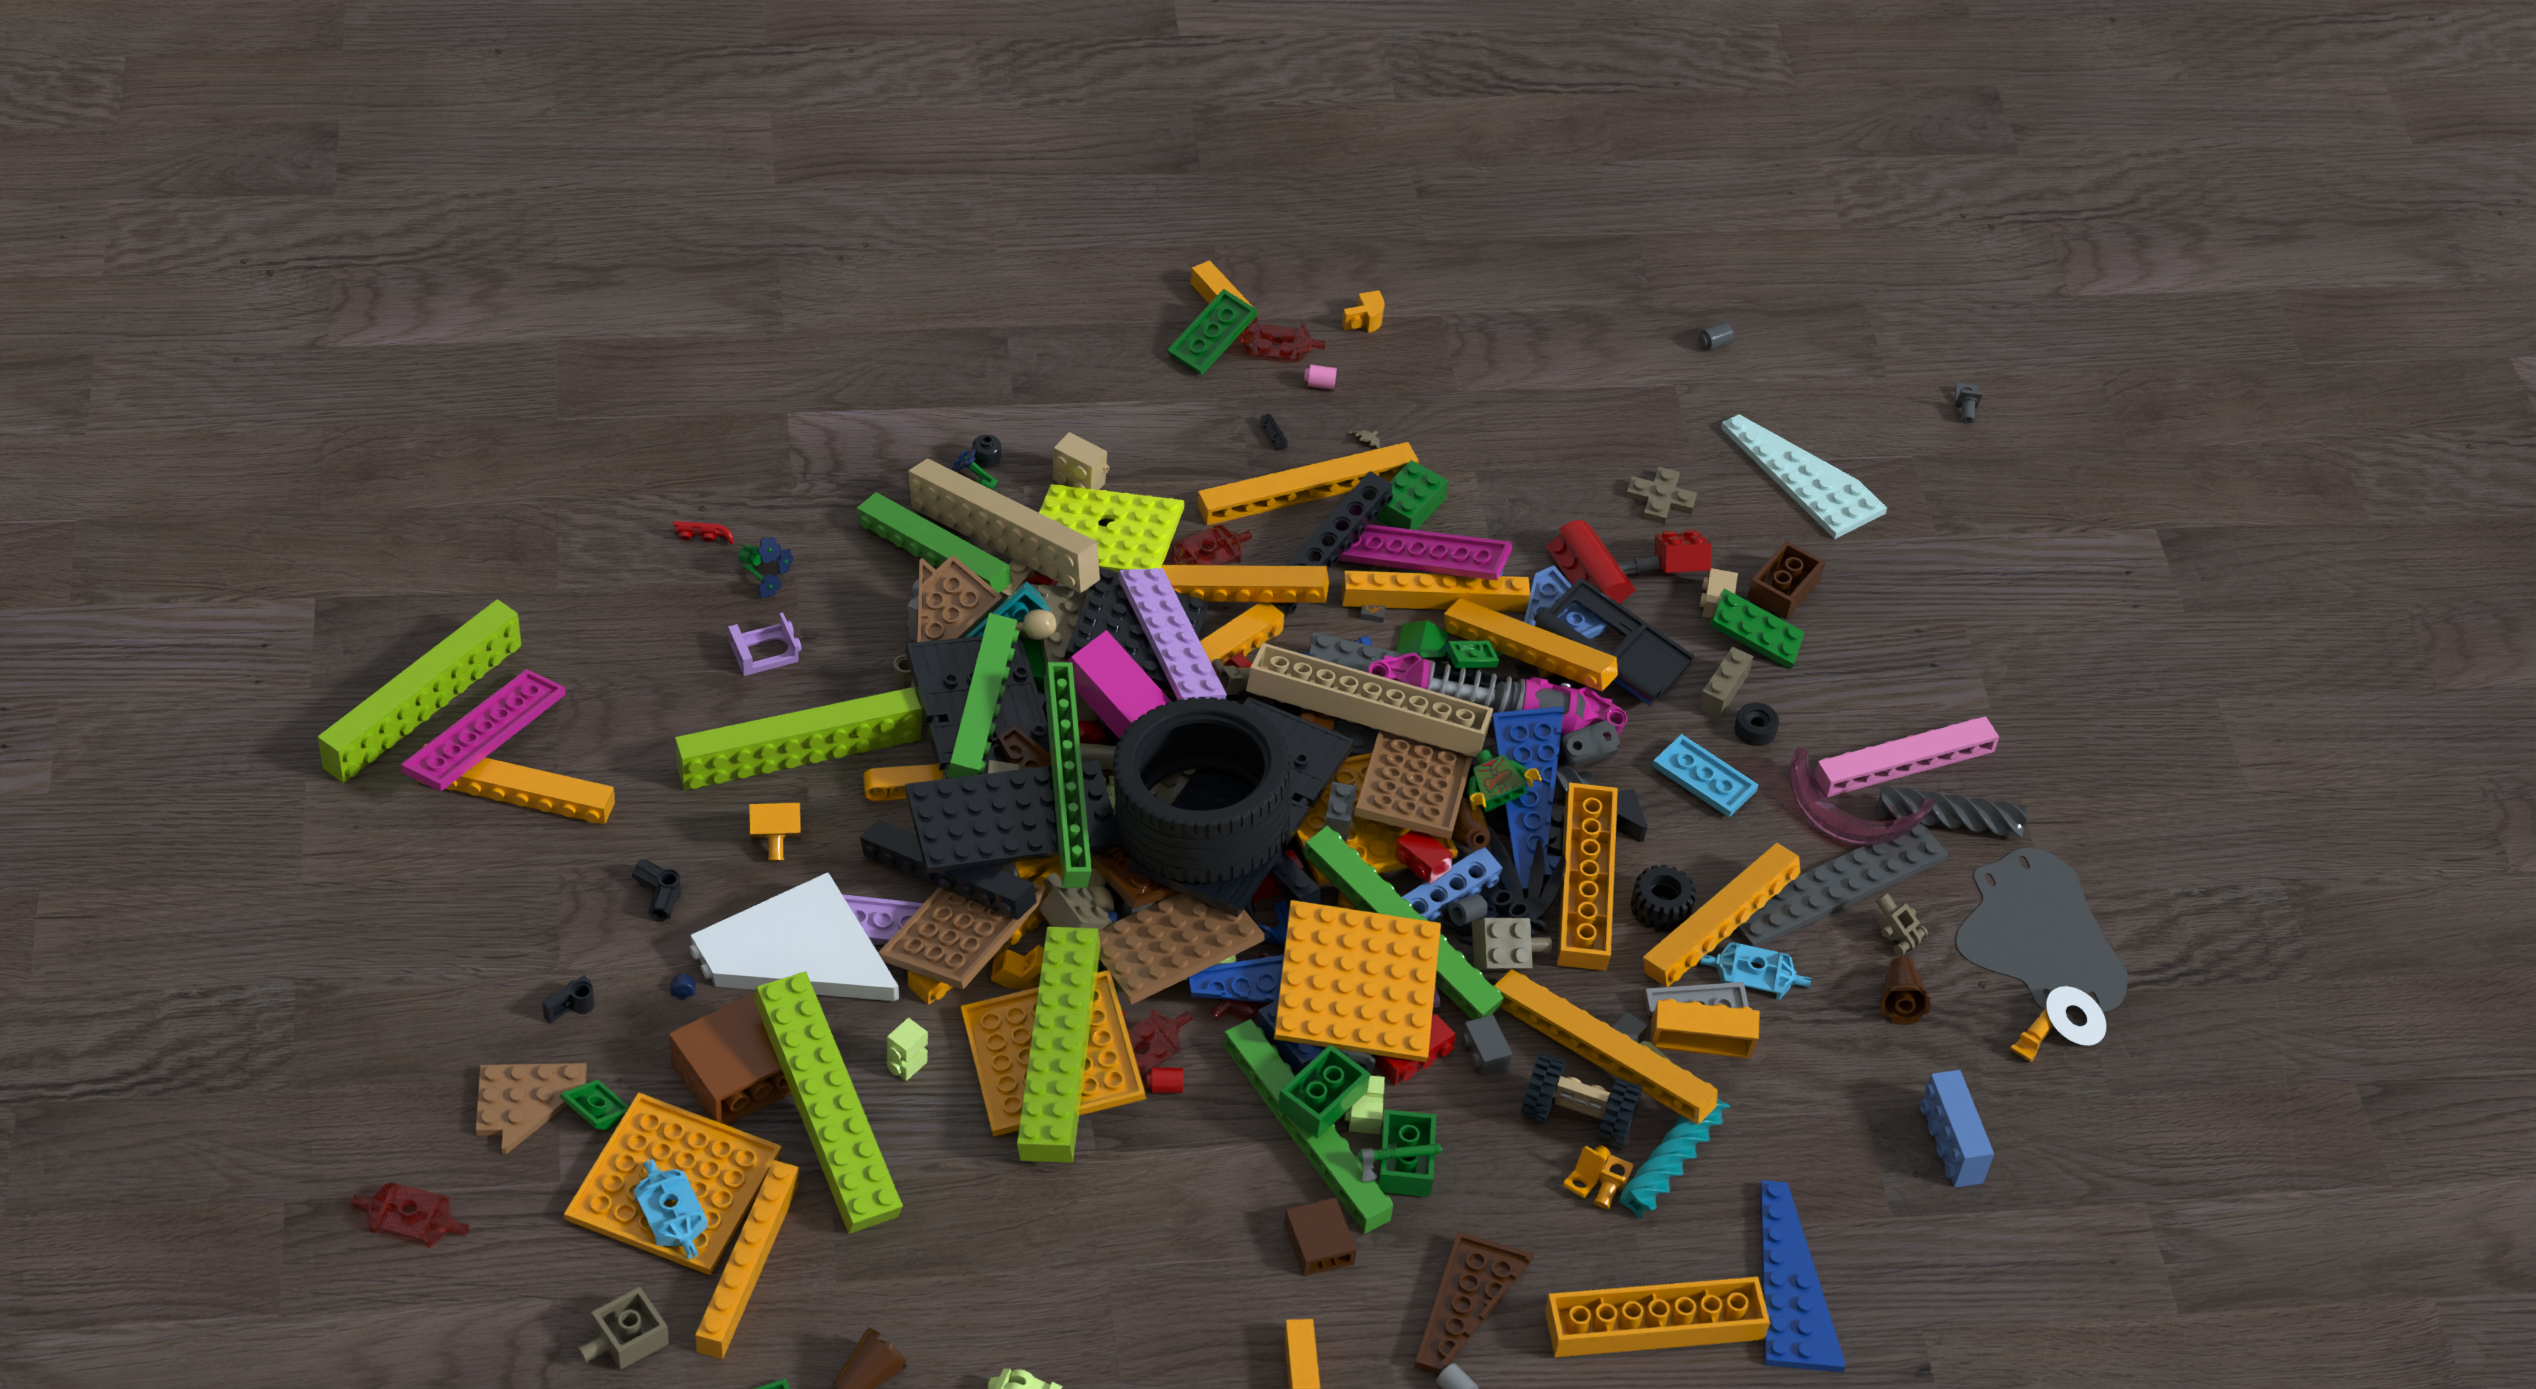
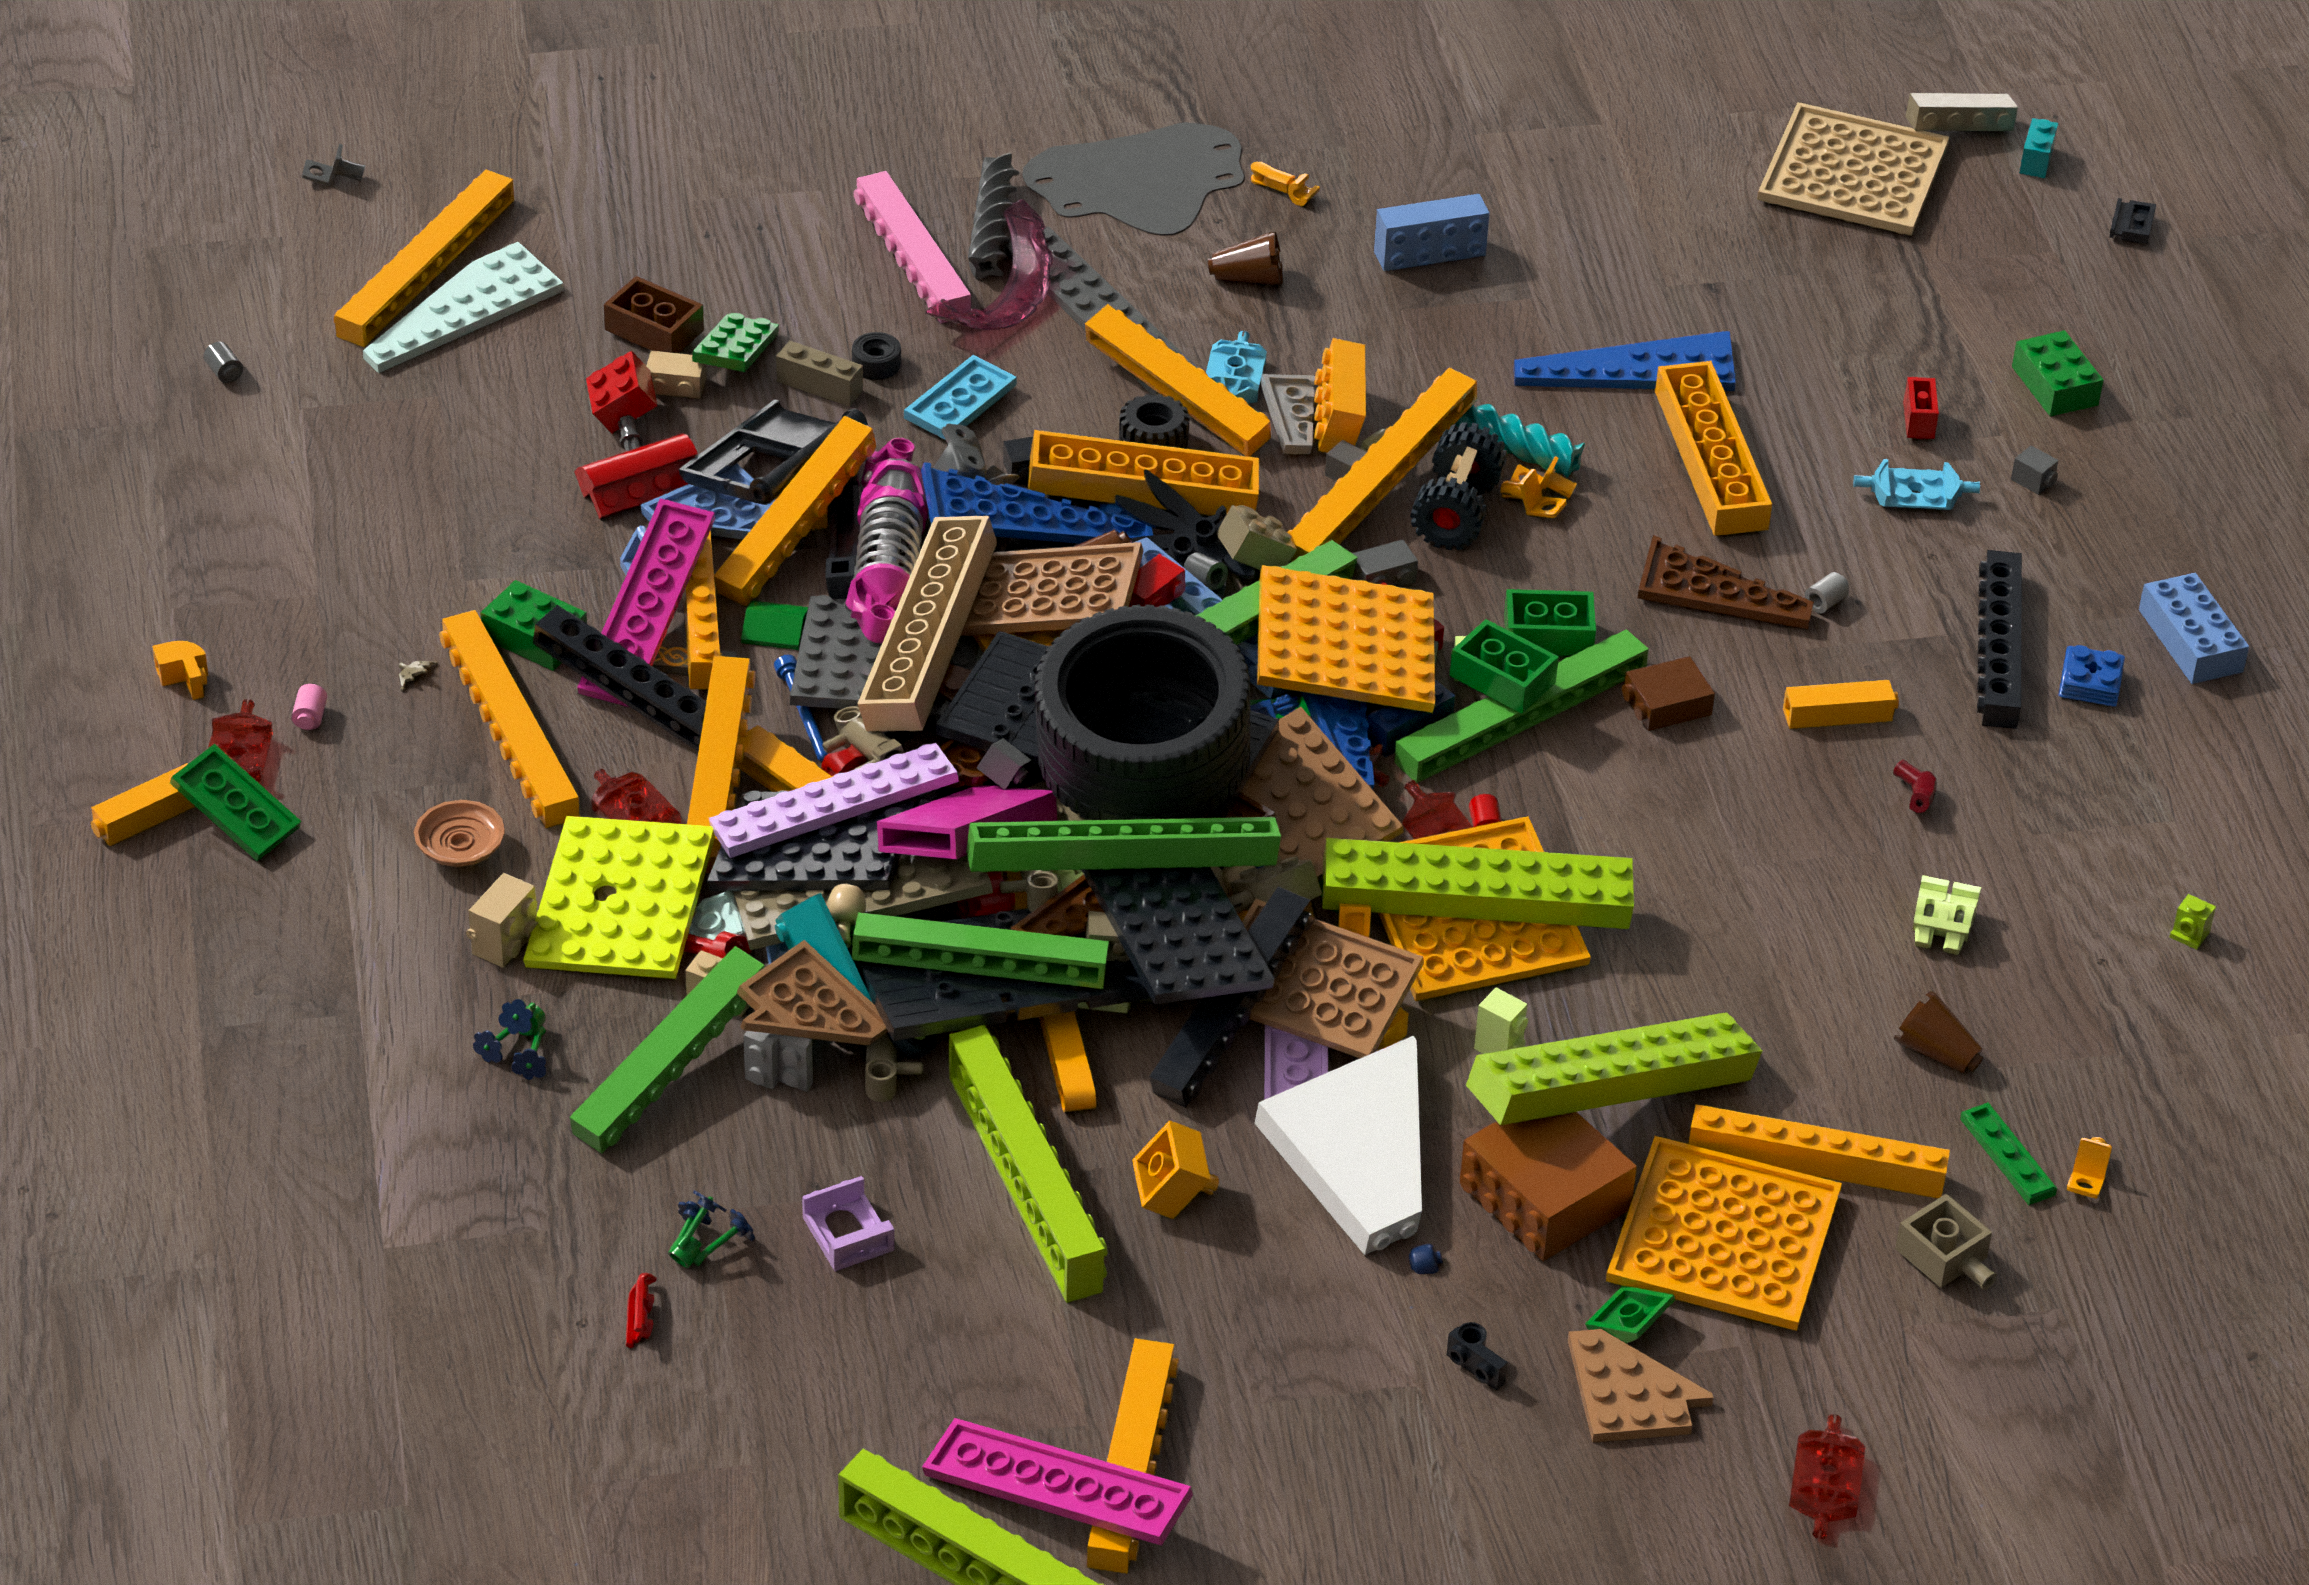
camera: 90 degrees left, 5 degrees down
(666, 886) = (1277, 1283): black piece -> none
(674, 1224) = (1755, 1230): medium azure plate -> none
(987, 451) = (469, 1017): black head -> none
(1004, 525) = (648, 966): tan brick -> none
(1176, 448) = (459, 833): none -> nougat hat
(1274, 431) = (408, 754): black axle -> none
(1368, 1156) = (1577, 632): green piece -> none
(1465, 654) = (810, 564): green plate -> none
(1498, 781) = (1034, 523): green torso -> none
(1661, 495) = (503, 421): dark tan plate -> none
(1859, 451) = (424, 258): none -> light orange brick
(1900, 924) = (1161, 262): dark tan piece -> none
(2056, 1007) = (1277, 153): white sticker -> none

